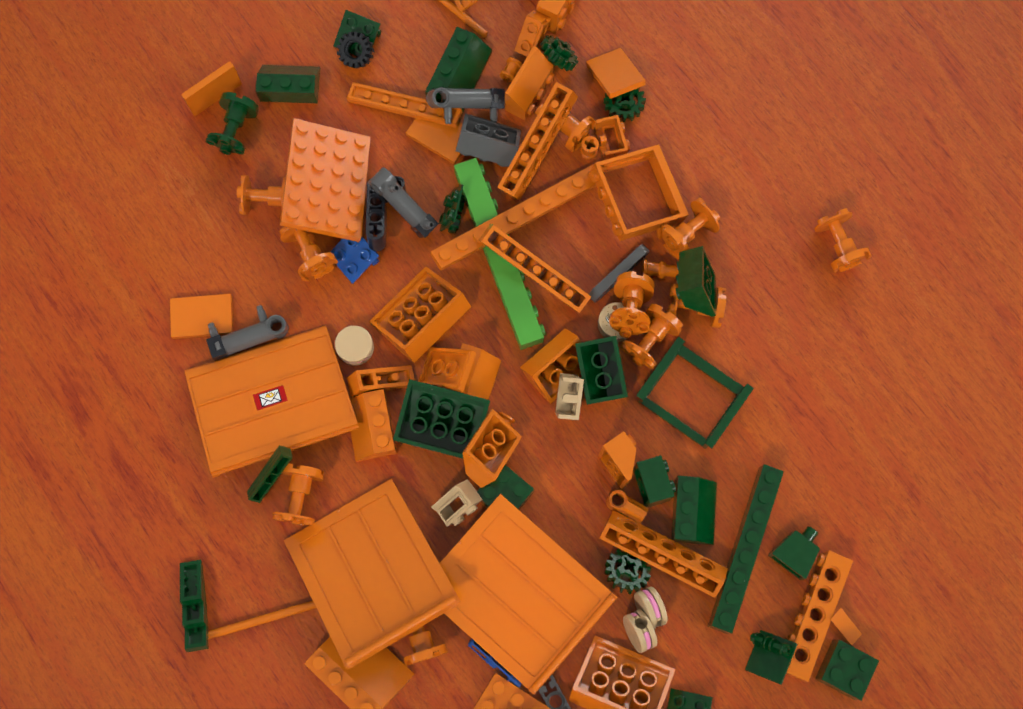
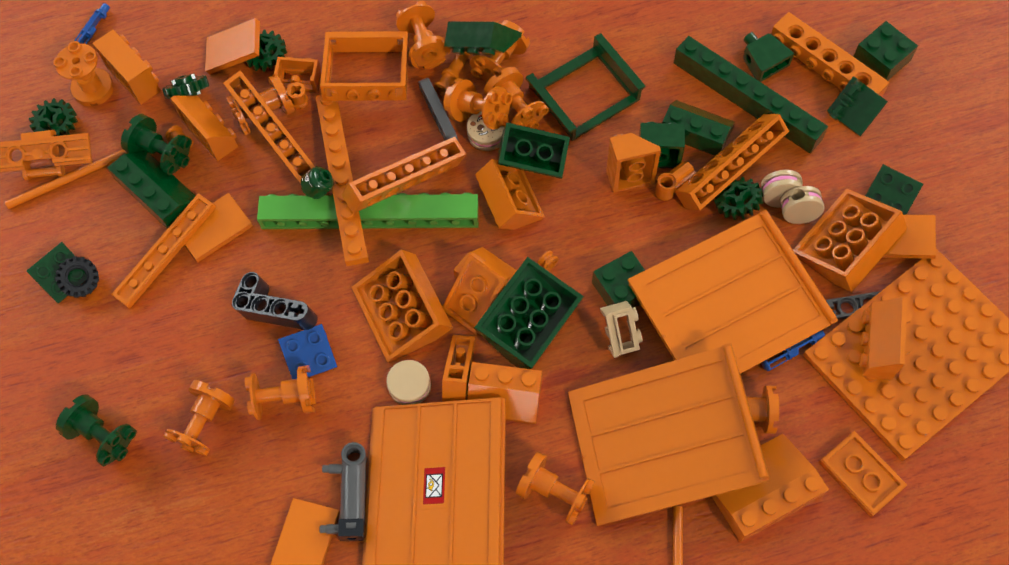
camera: 65 degrees left, 10 degrees down
(211, 88) = (41, 440): orange tile -> none
(269, 474) = (522, 509): dark green piece -> none
(288, 84) = (78, 360): dark green slope -> none
(325, 180) = (213, 348): orange plate -> none
(386, 185) = (251, 284): dark grey piece -> none
(453, 207) = (303, 237): dark green hinge -> none
(467, 98) = (191, 182): dark grey piece -> none
(488, 140) = (246, 180): dark grey slope -> none
(489, 449) = (581, 274): orange slope -> none
(497, 41) = (143, 137): none -> dark green piece
(499, 199) = (317, 182): none -> dark green head
(532, 32) = (154, 101): orange window -> none
(569, 396) = (545, 193): tan window -> none
(846, 626) = (844, 39): orange sticker -> none

